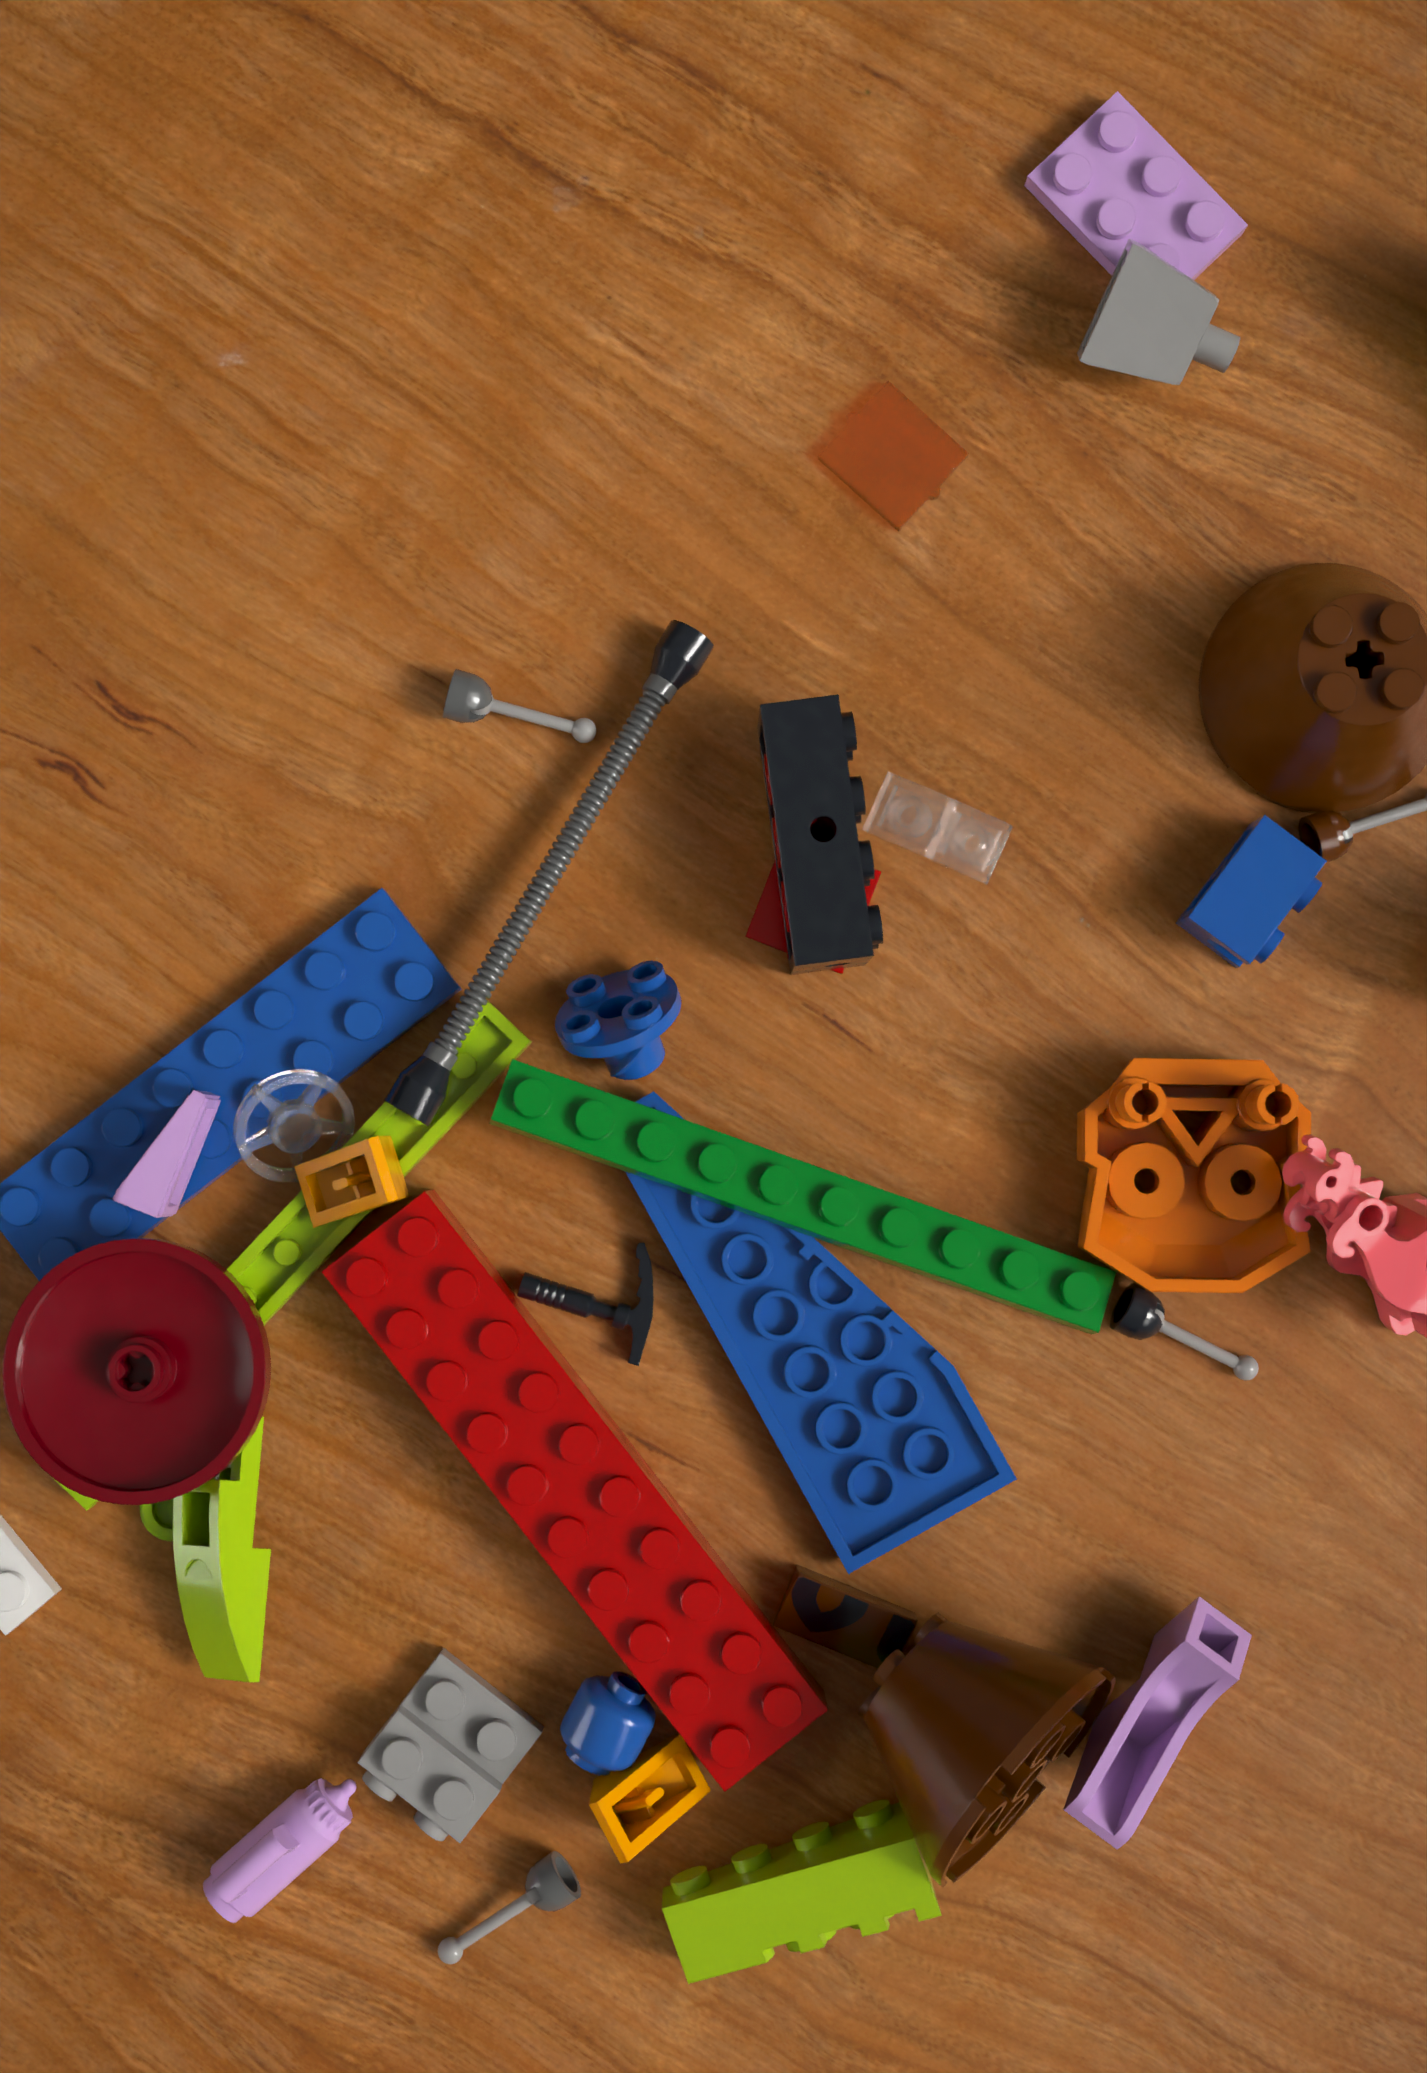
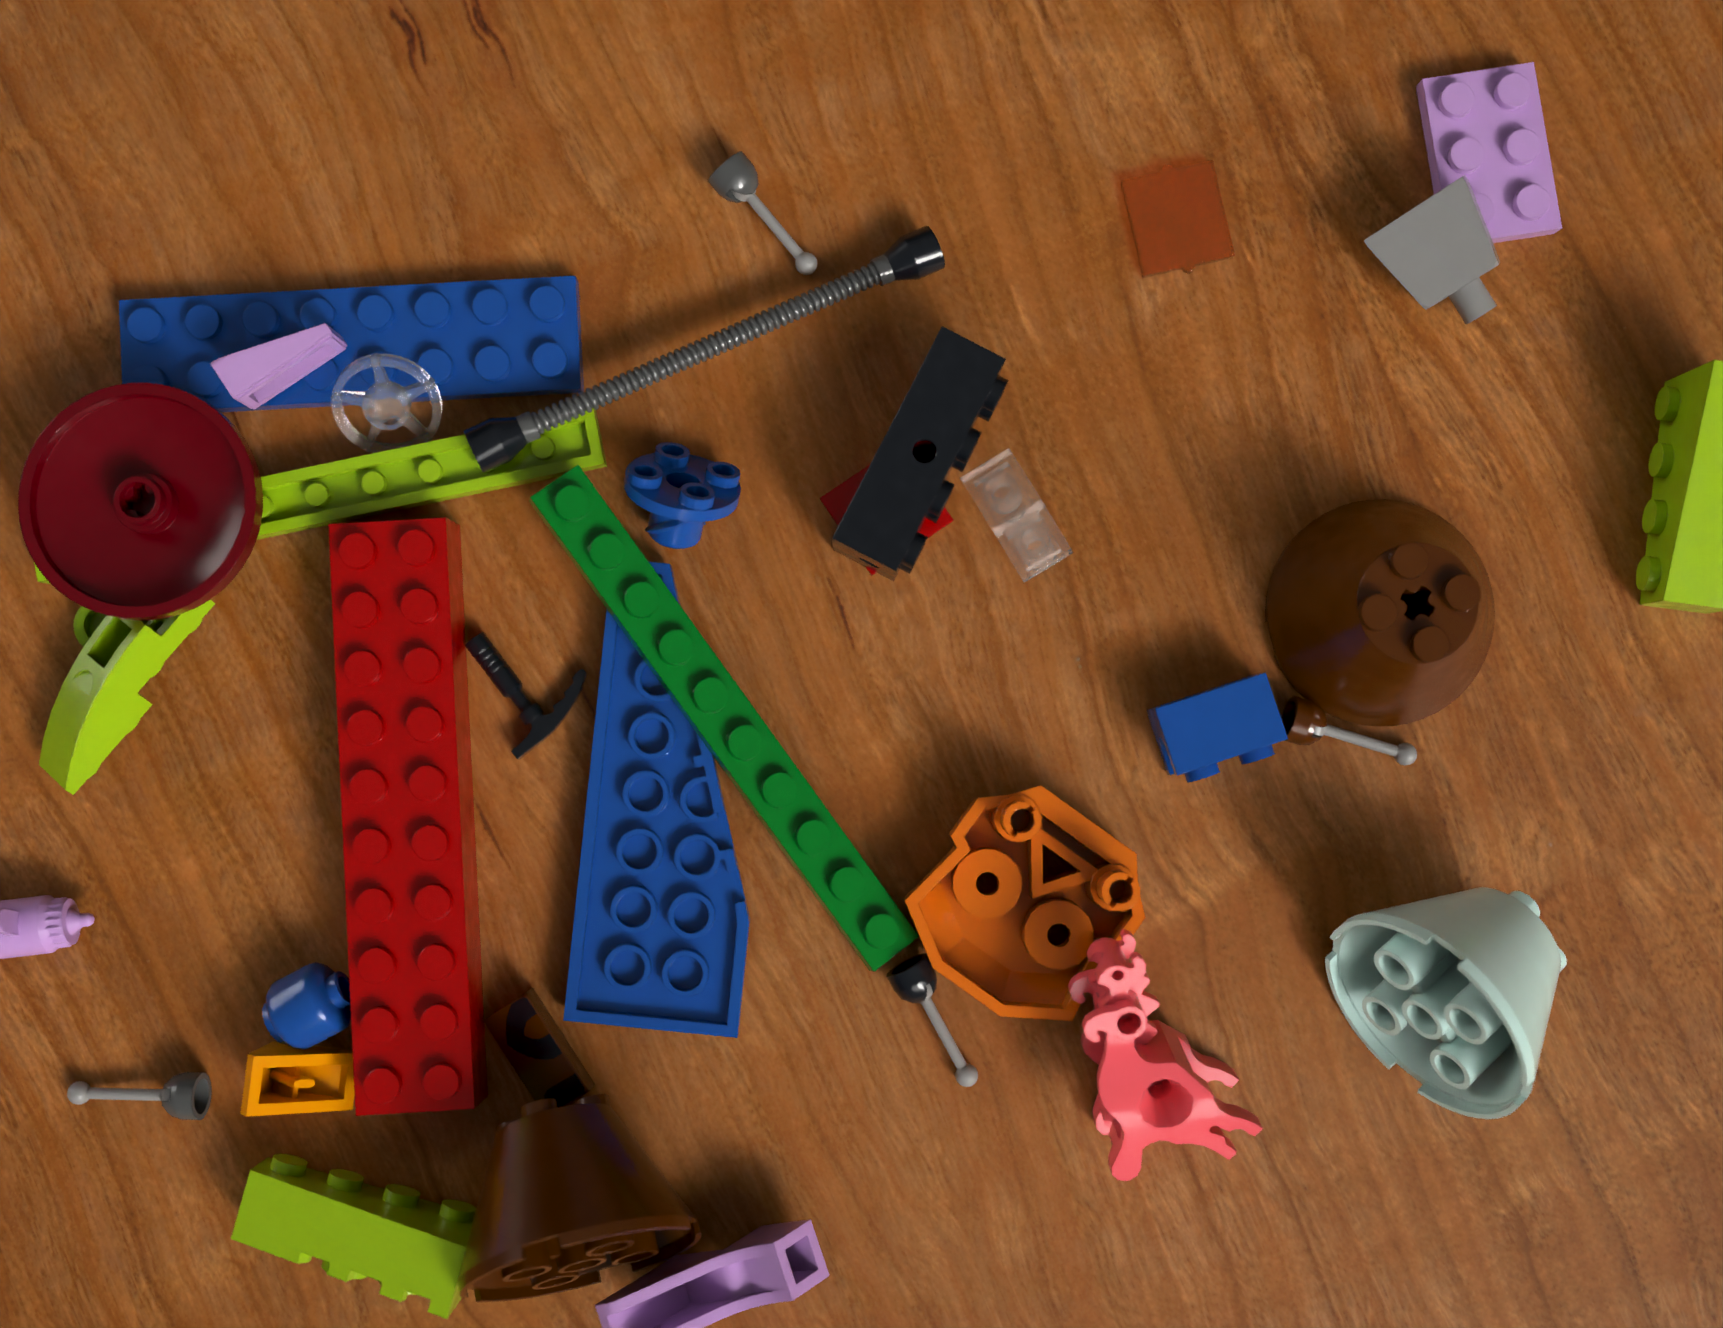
camera: 30 degrees right, 0 degrees up
(352, 1180) = (401, 473): light orange slope -> none
(449, 1748) = (181, 942): light grey plate -> none

